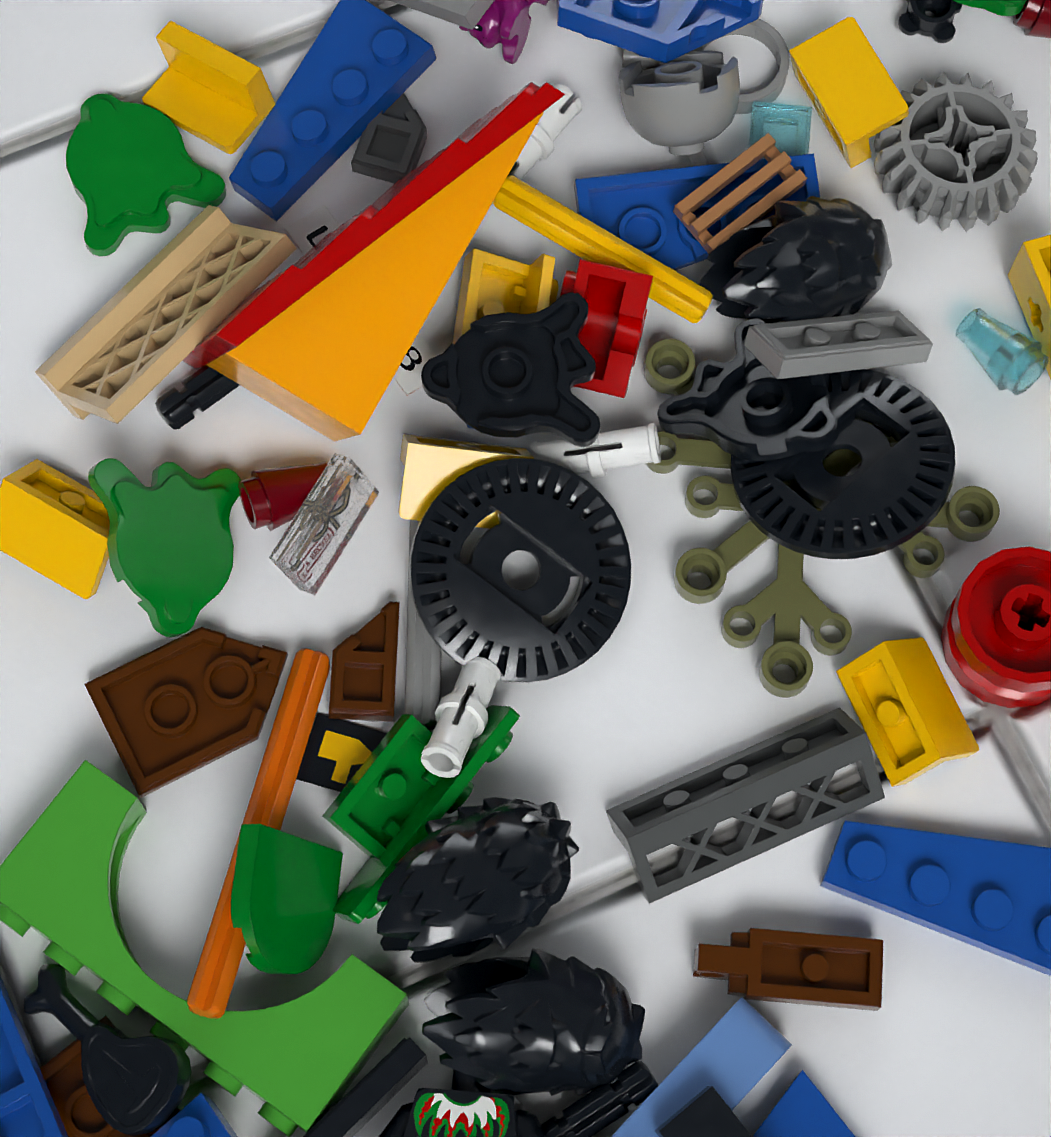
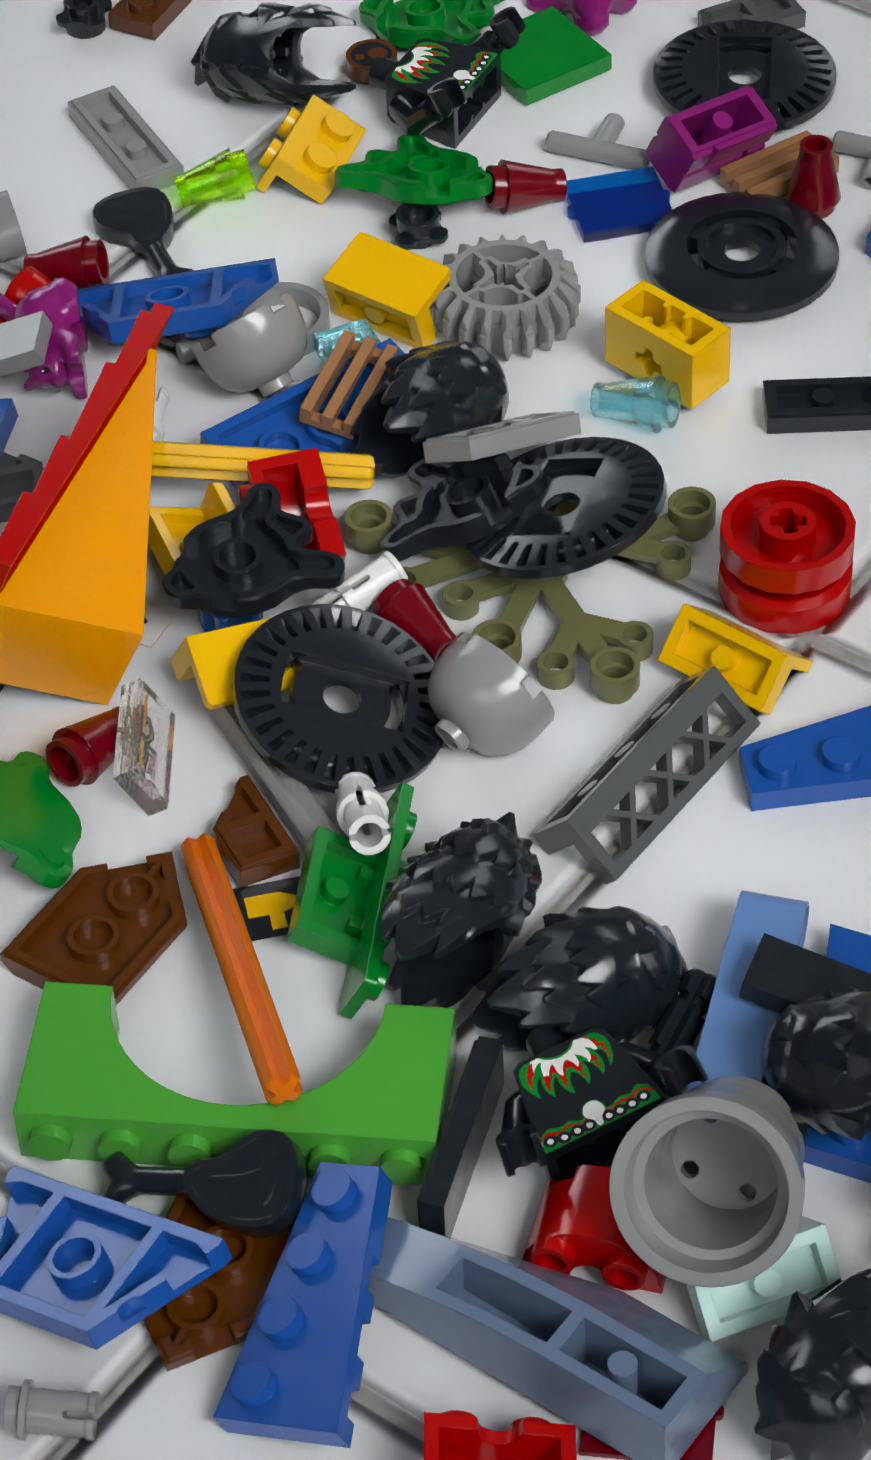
camera: 25 degrees left, 25 degrees down
(284, 898) = (297, 990): green tile -> none
(640, 649) = (483, 700): none -> light grey cylinder
(644, 508) = (415, 613): none -> dark red cone
(797, 968) = (771, 860): reddish brown hinge -> none

